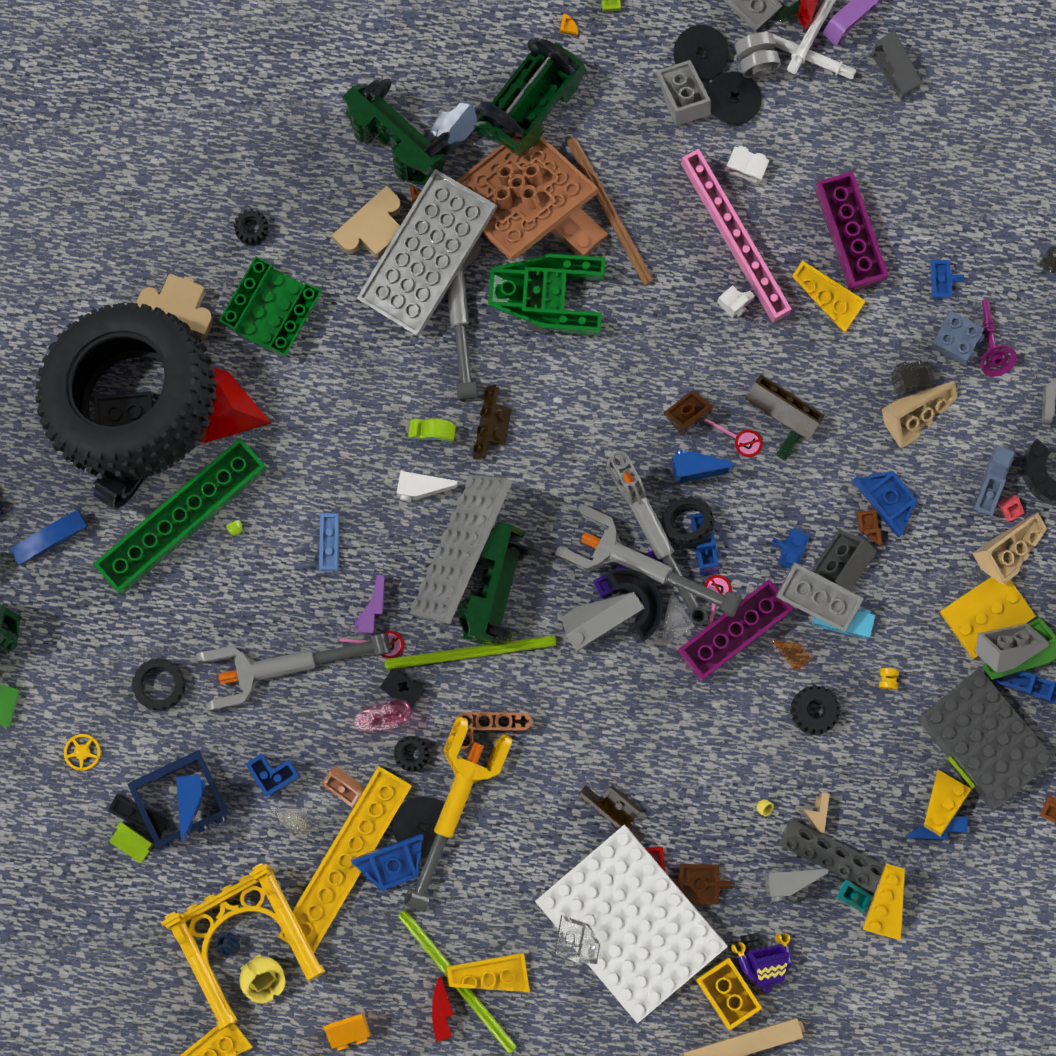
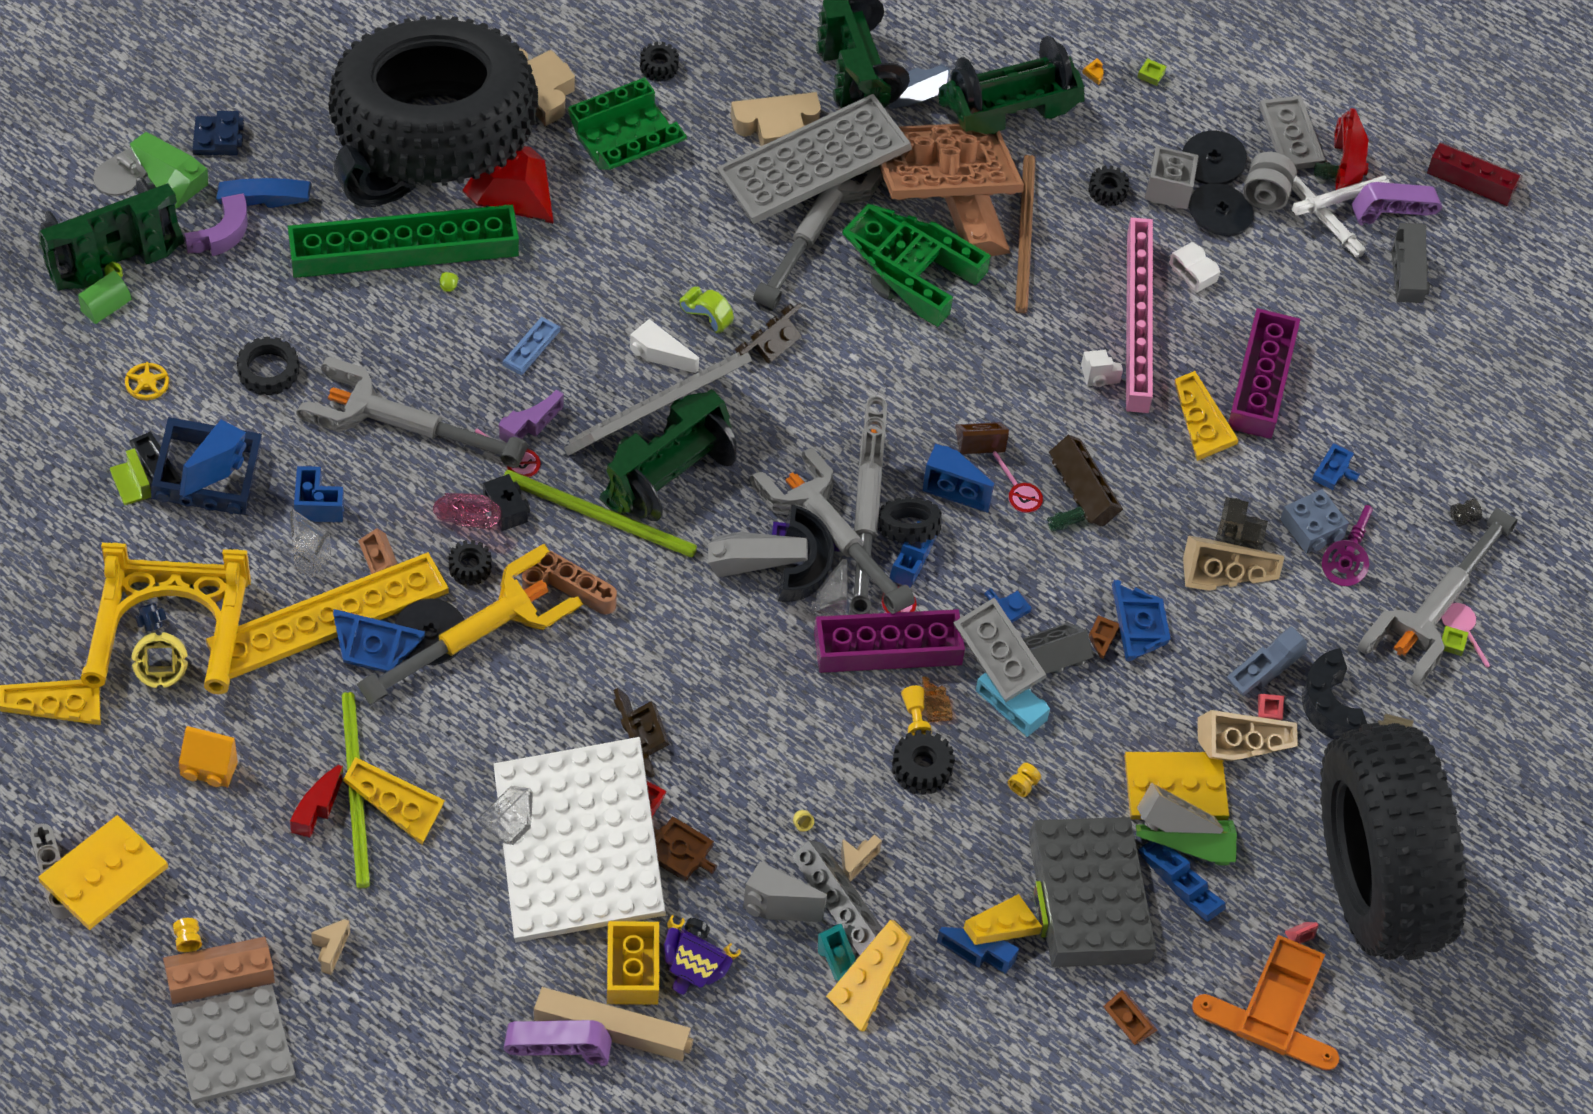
camera: 30 degrees right, 25 degrees down
(49, 588) = (226, 233): none -> medium lavender arch
(643, 119) = (1108, 176): none -> black tyre
(781, 667) = (914, 701): none -> yellow piece

